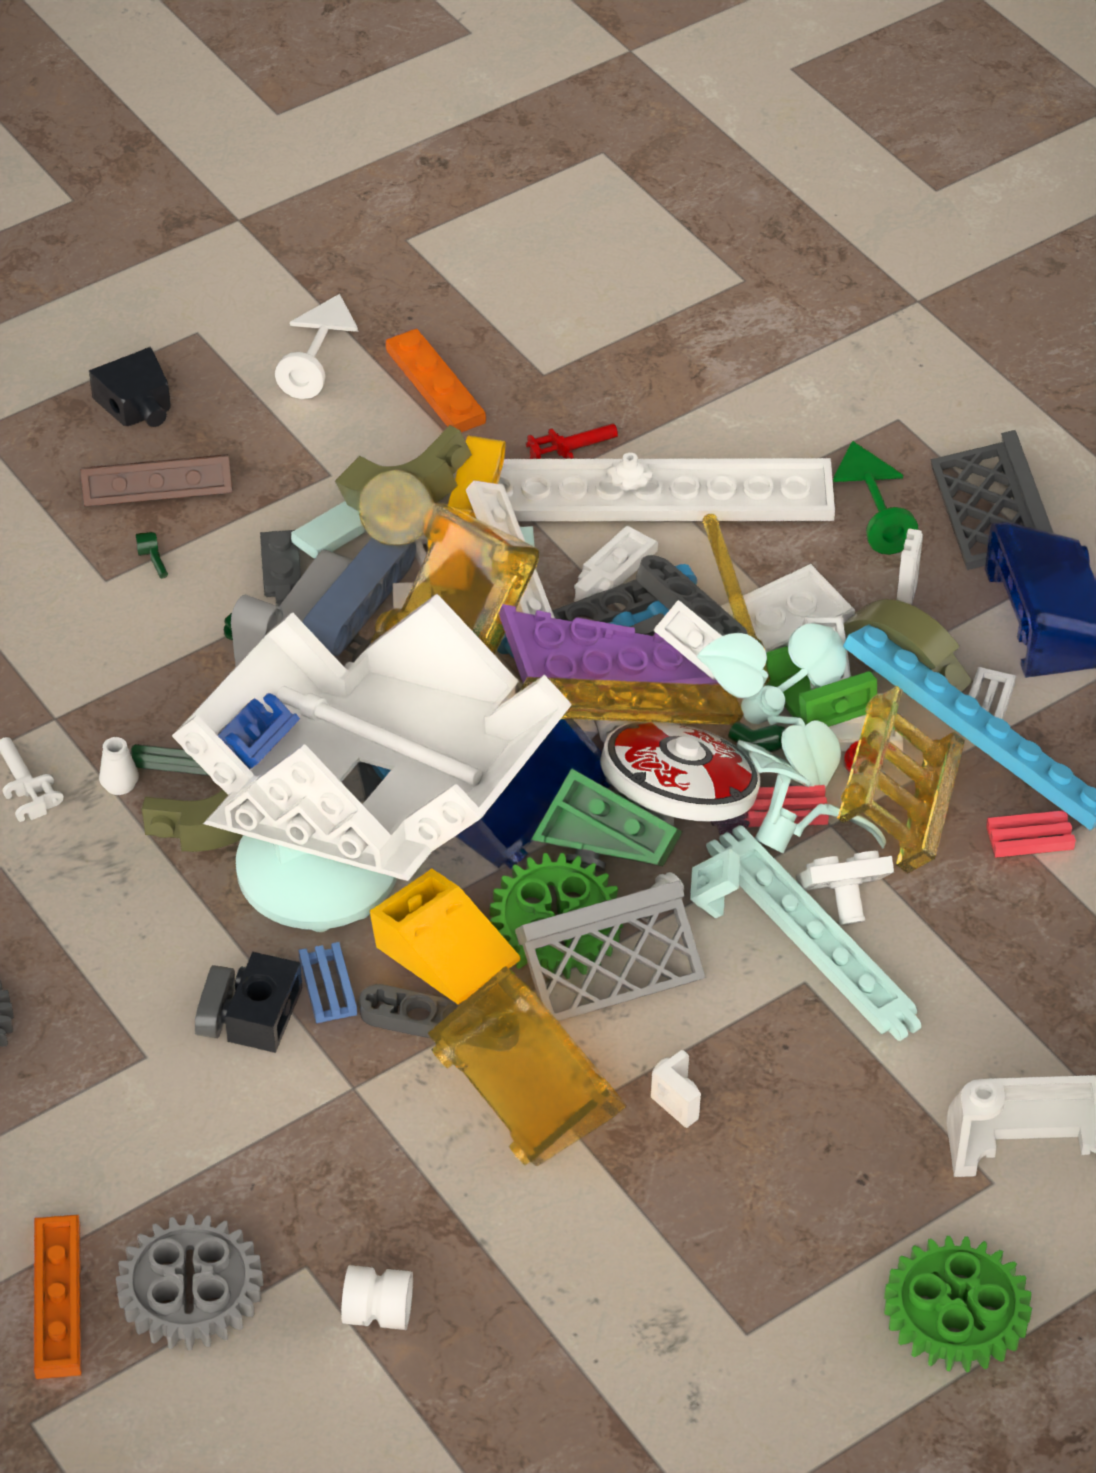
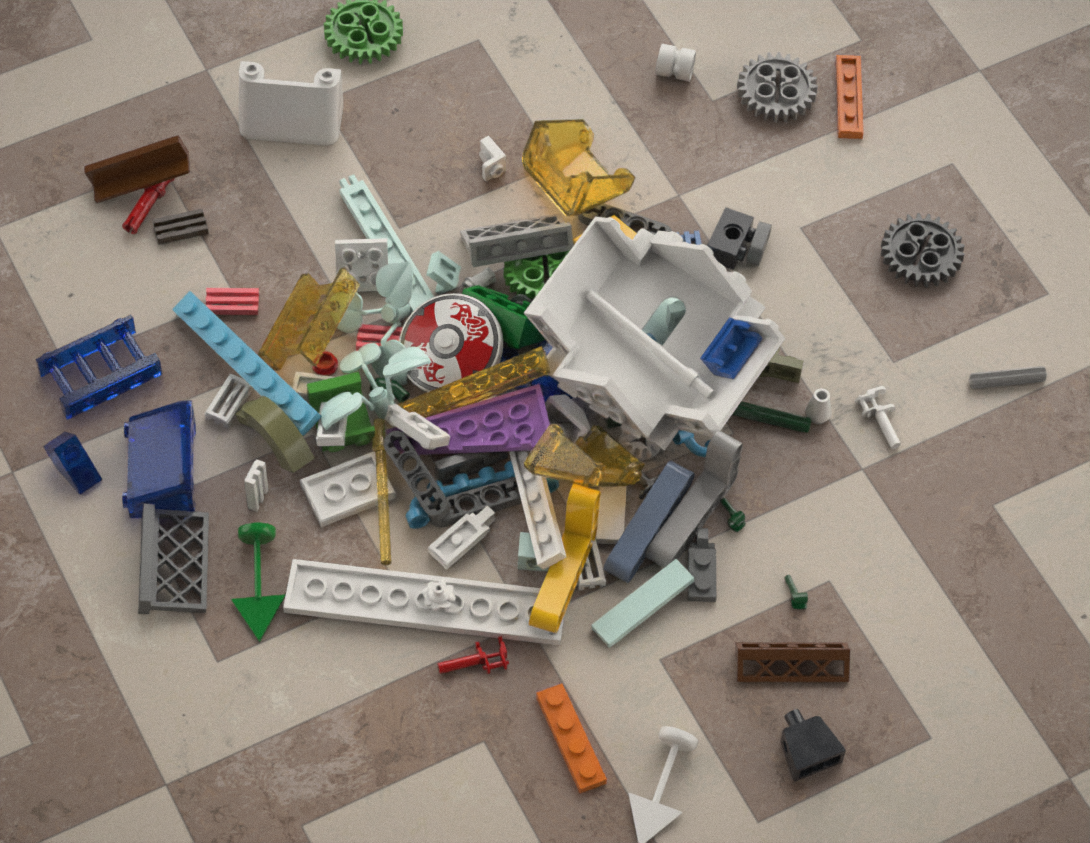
camera: 175 degrees left, 10 degrees up
(395, 507) = (625, 556): clear yellow tile -> none
(433, 466) = (614, 578): olive arch -> none

